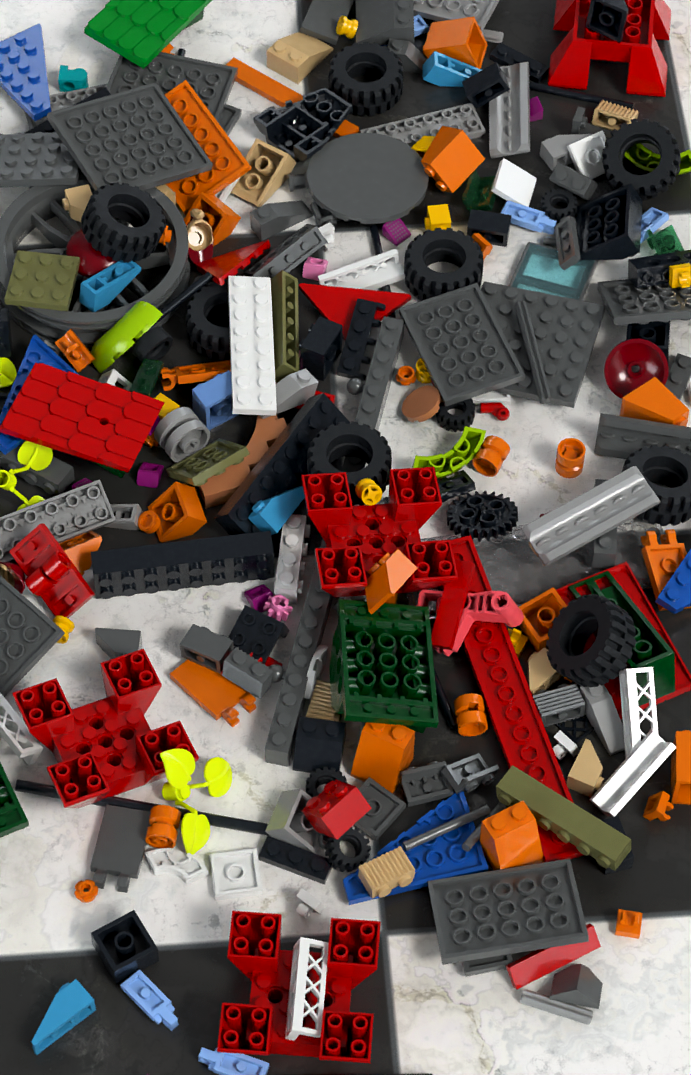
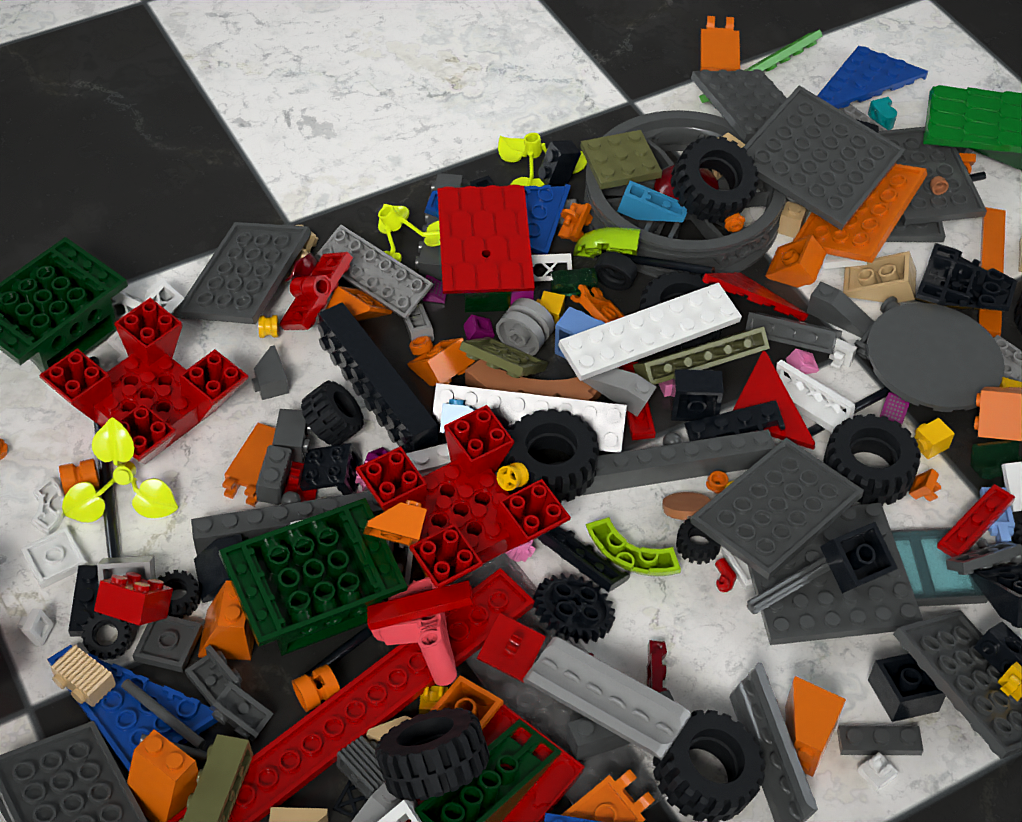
camera: 65 degrees right, 5 degrees down
(120, 846) = (45, 454): dark grey tile -> none
(196, 82) = (938, 185): none -> nougat hinge
(200, 237) = (763, 256): tan hair -> none
(205, 607) = (332, 413): none -> black tyre
(490, 225) = (958, 484): black brick -> none
(491, 456) = (658, 590): orange wheel -> none
(502, 568) = (511, 647): none -> red piece
(531, 233) = (976, 521): none -> red tile
(544, 311) = (858, 557): none -> black brick
(557, 488) = (655, 669): none -> dark red hinge
(564, 746) = (318, 794): white tile -> none
(570, 458) = (699, 664): orange wheel -> none
(634, 352) = (847, 673): dark red dish -> none

